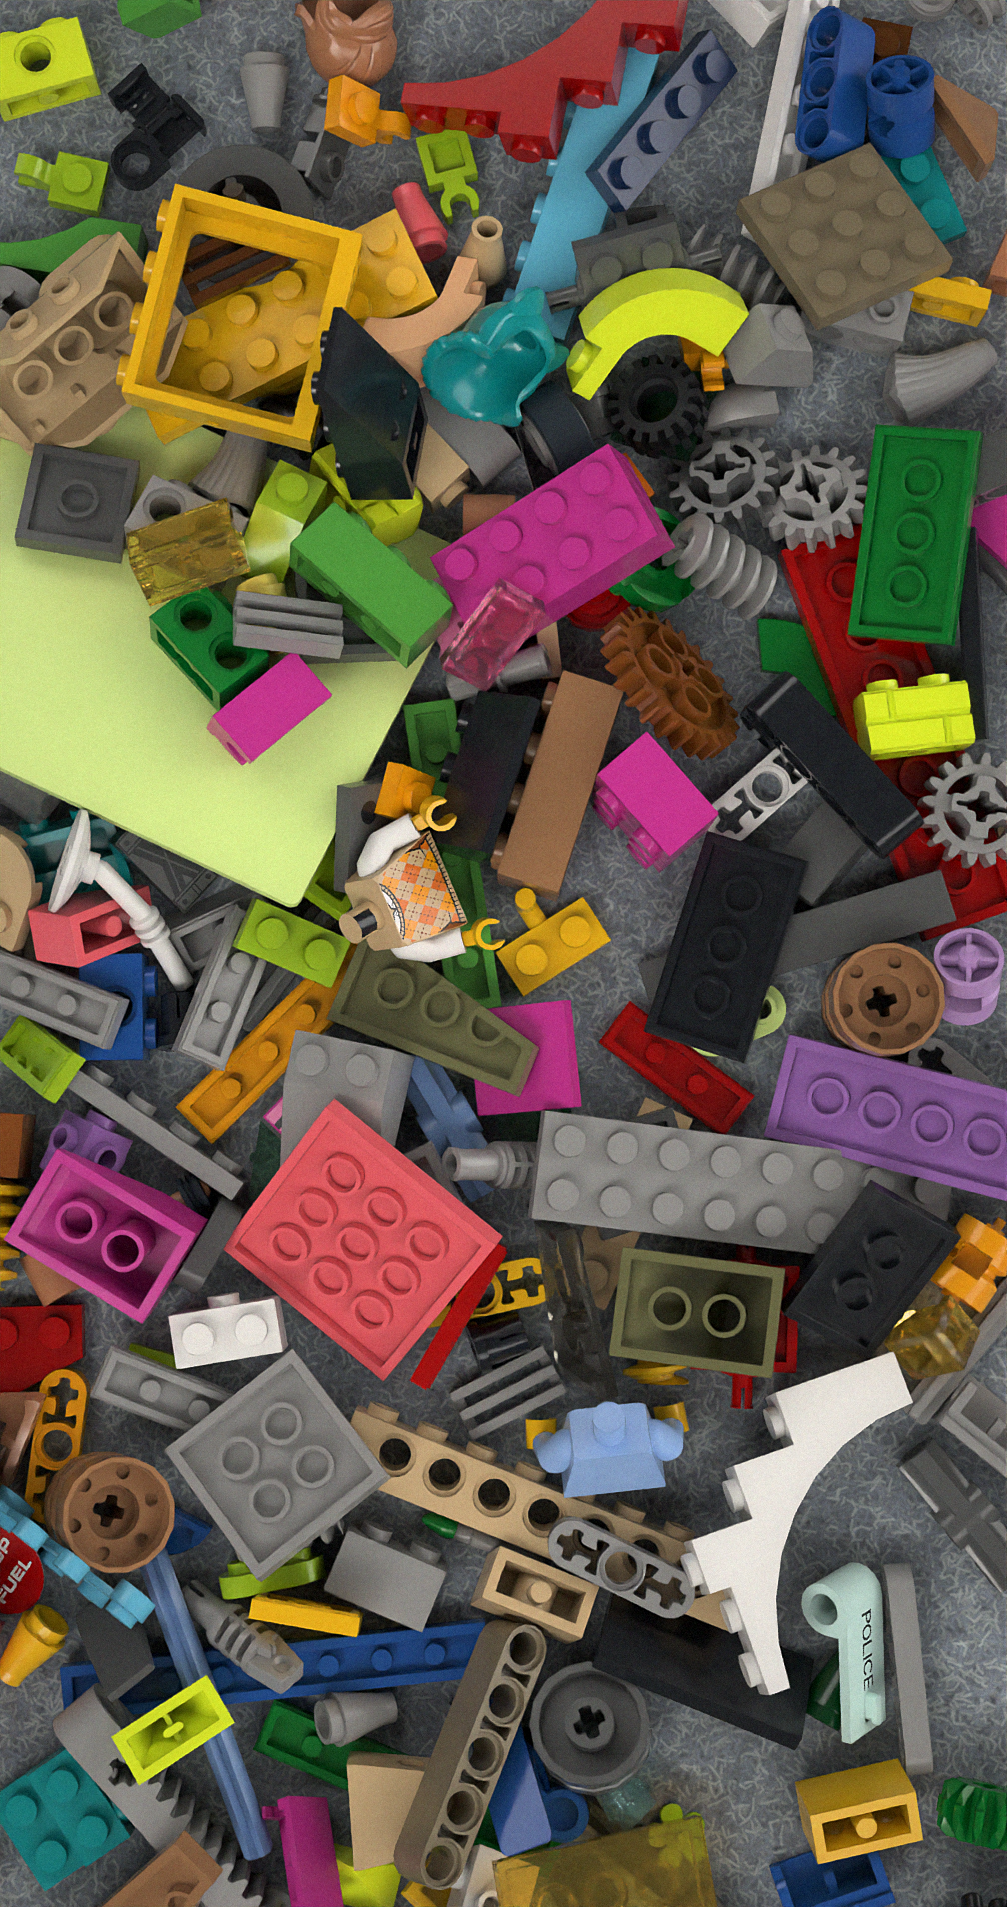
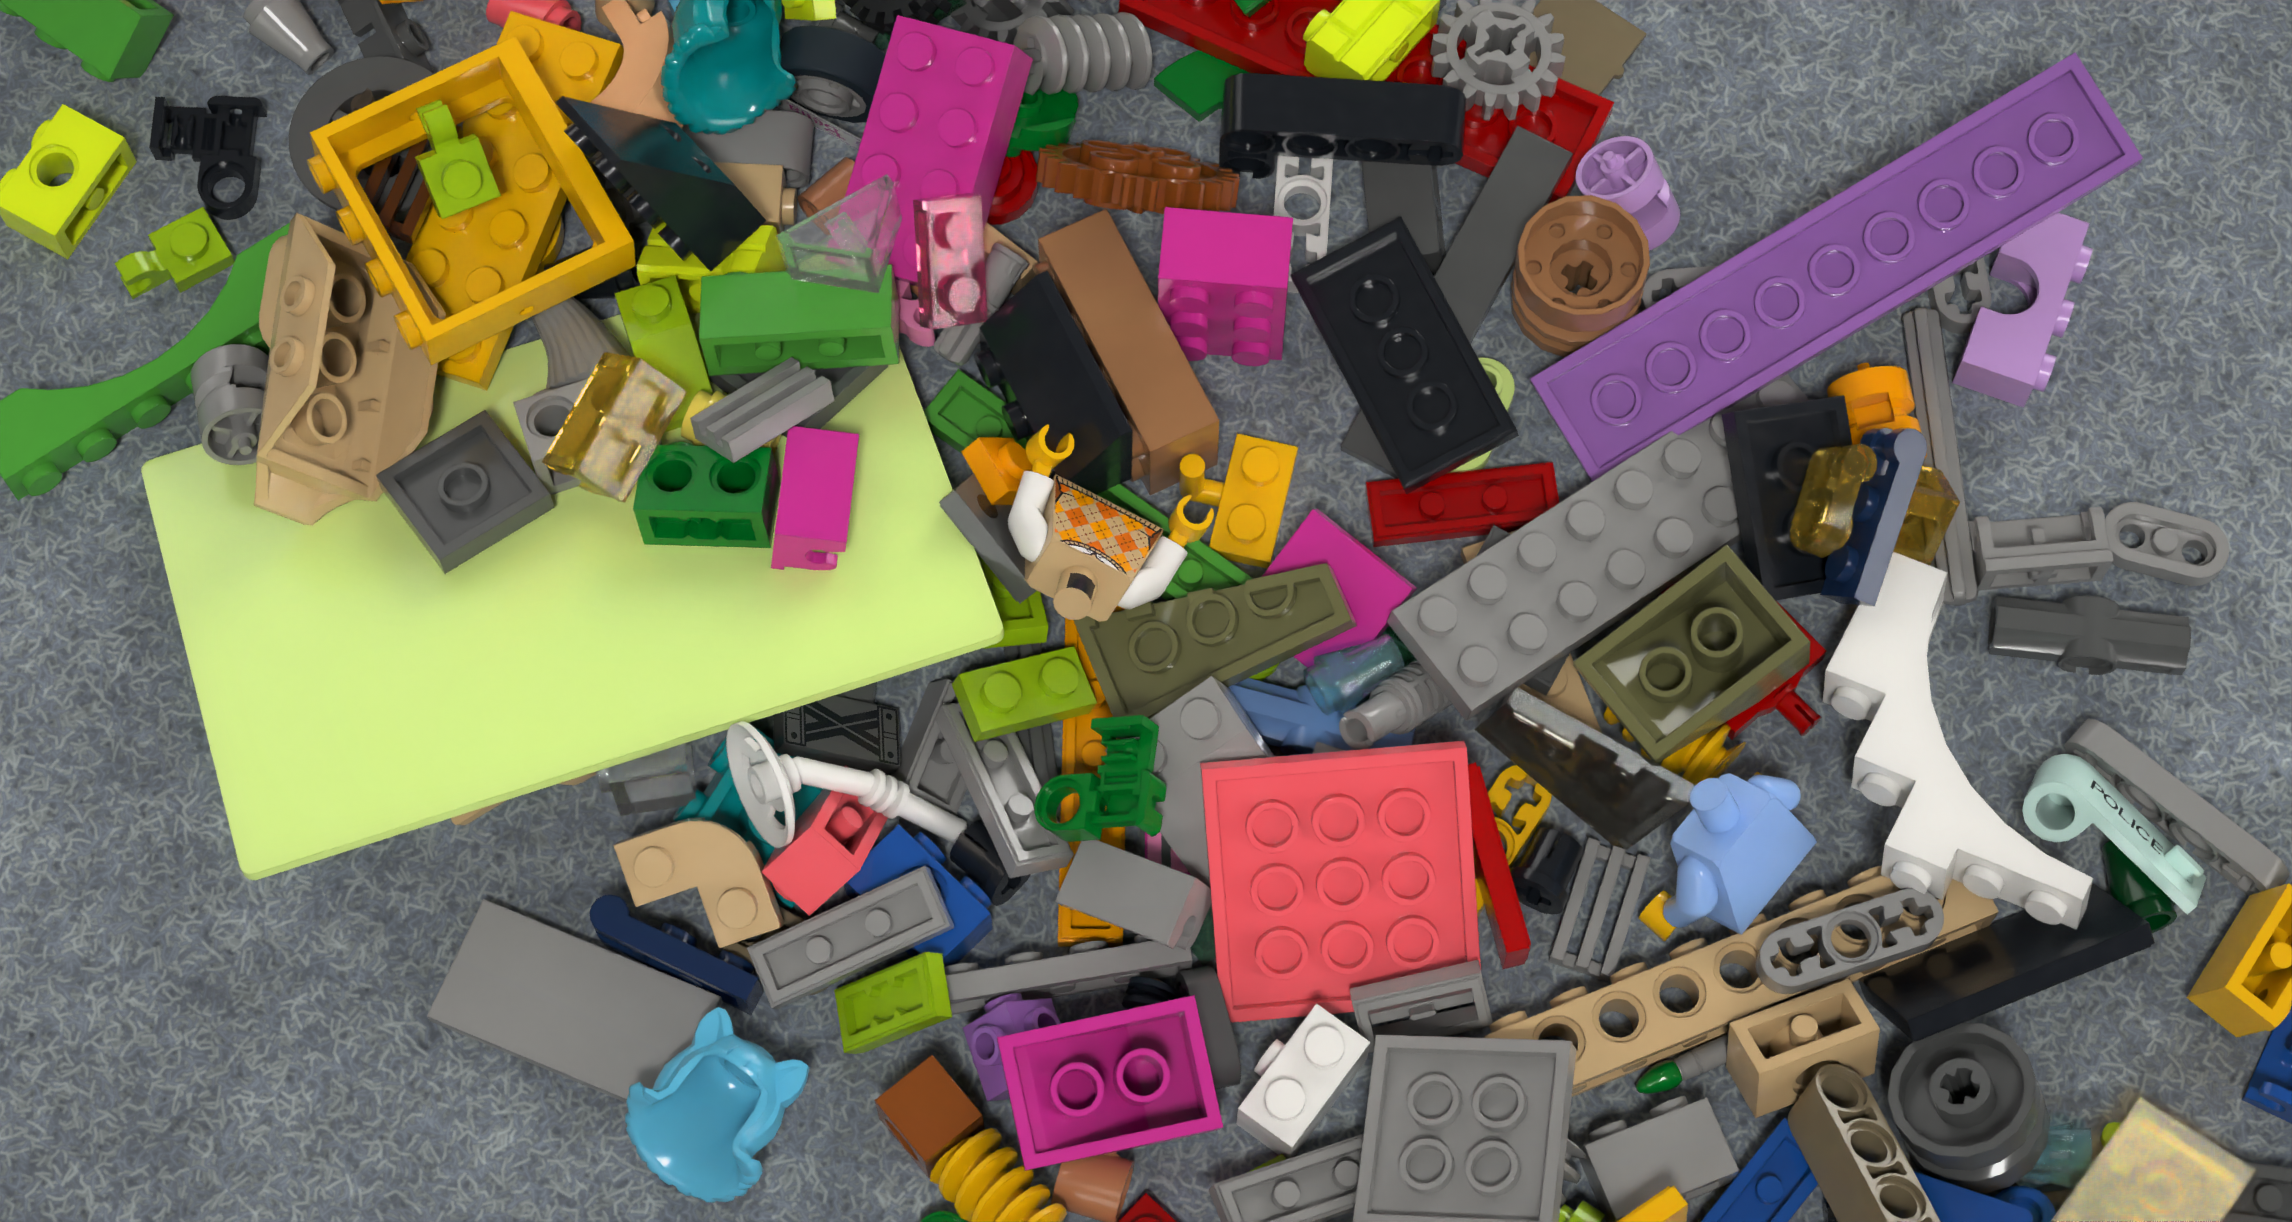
camera: 45 degrees left, 15 degrees down
(232, 1131) = (1135, 894): none -> light grey hinge
(247, 288) = (455, 167): none -> lime plate
(279, 1062) = (1124, 785): none -> green piece
(341, 1352) = (1419, 998): none -> light grey tile
(436, 566) = (847, 240): none -> clear slope
(490, 1121) = (1349, 674): none -> clear light blue cone
(883, 1294) = (1829, 496): none -> clear yellow plate
(901, 1330) = (1860, 566): none -> dark blue plate

